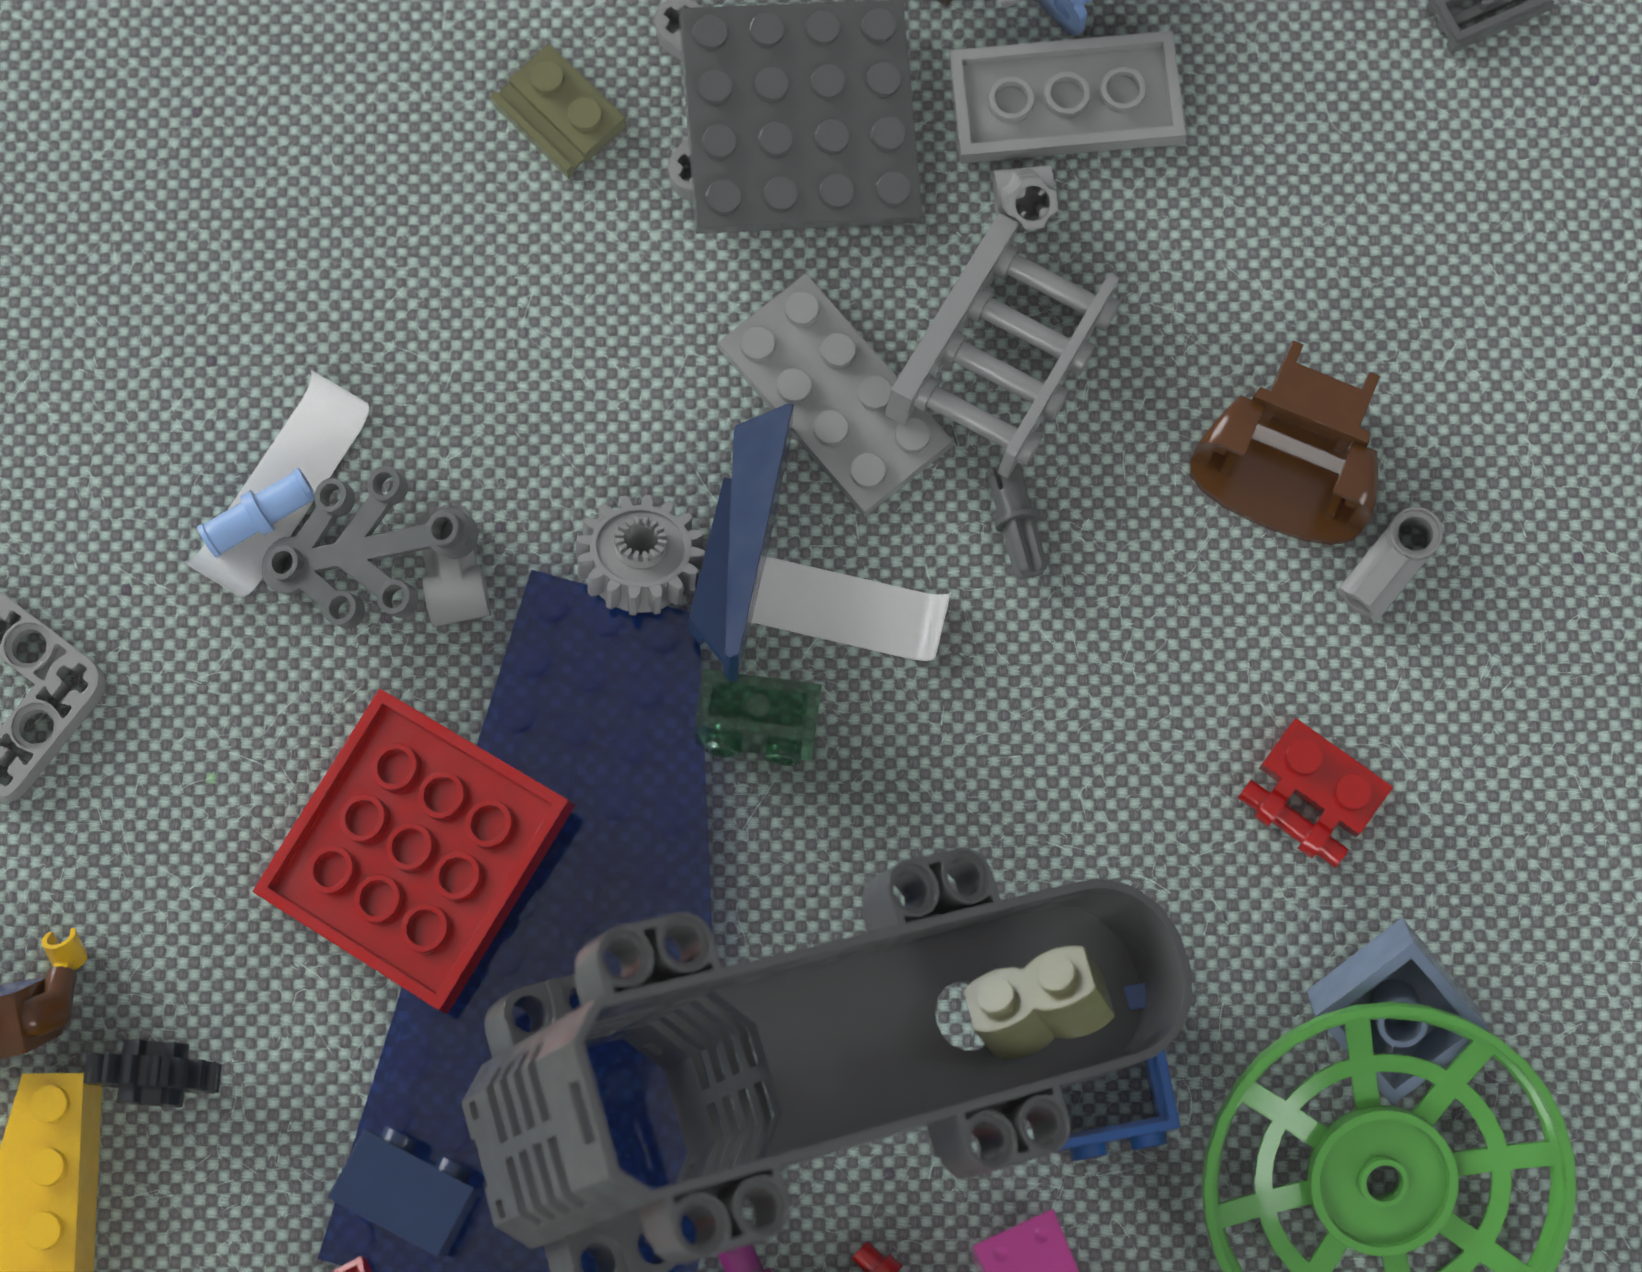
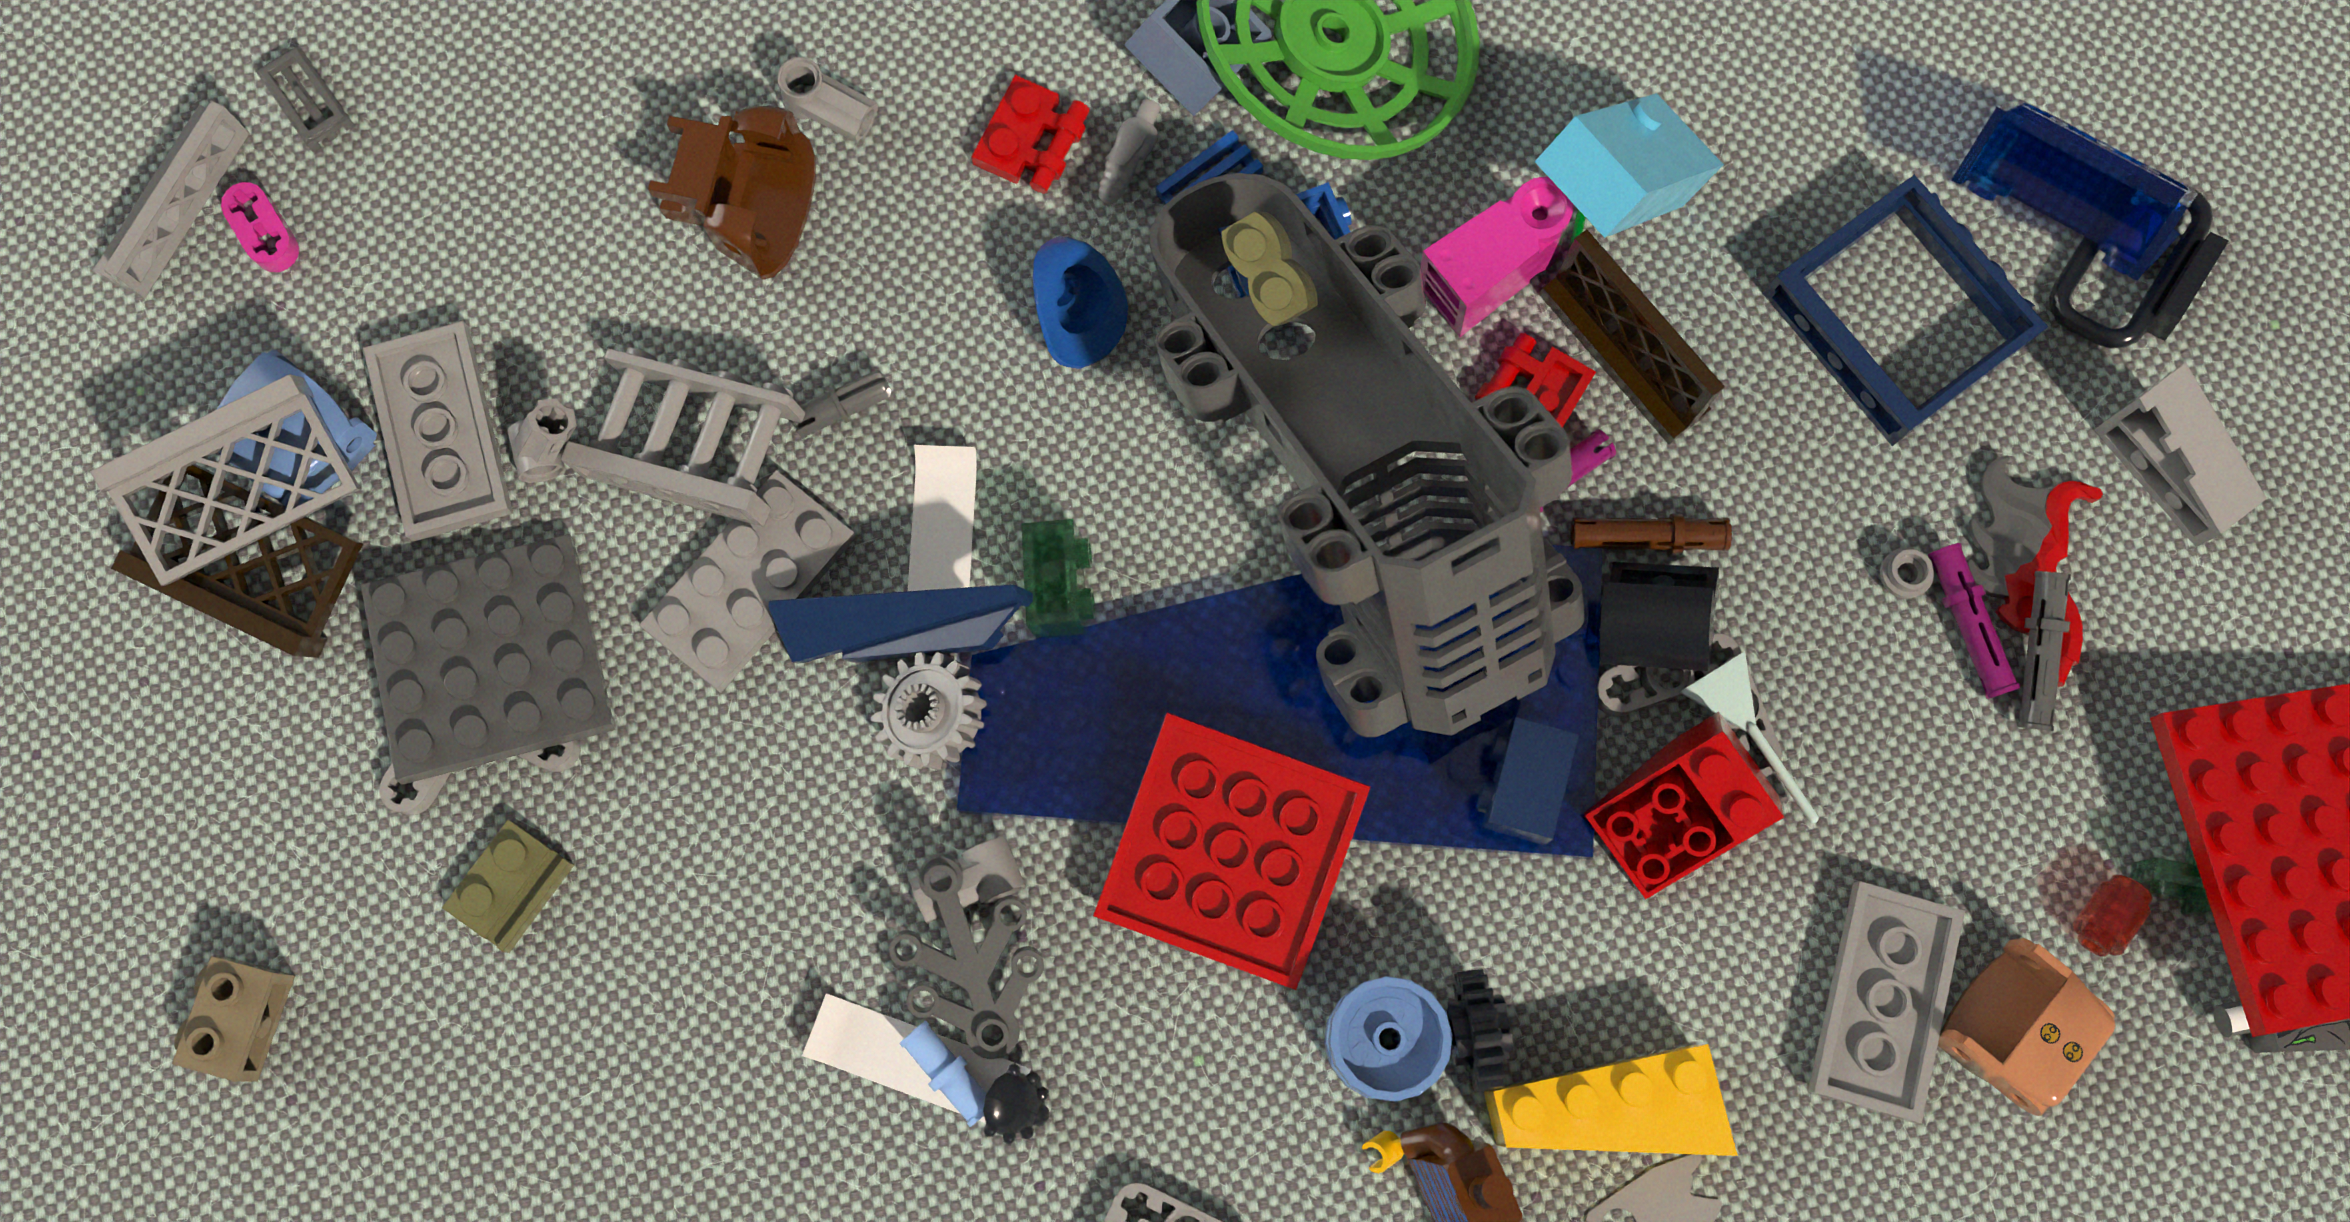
camera: 105 degrees left, 0 degrees up
(136, 966) = (1420, 1036): none -> medium blue wheel
(206, 573) = (1015, 1105): none -> black piece
(1087, 802) = (1078, 302): none -> blue hat
(1246, 988) = (1227, 143): none -> blue tile
(1274, 906) = (1132, 146): none -> light grey piece

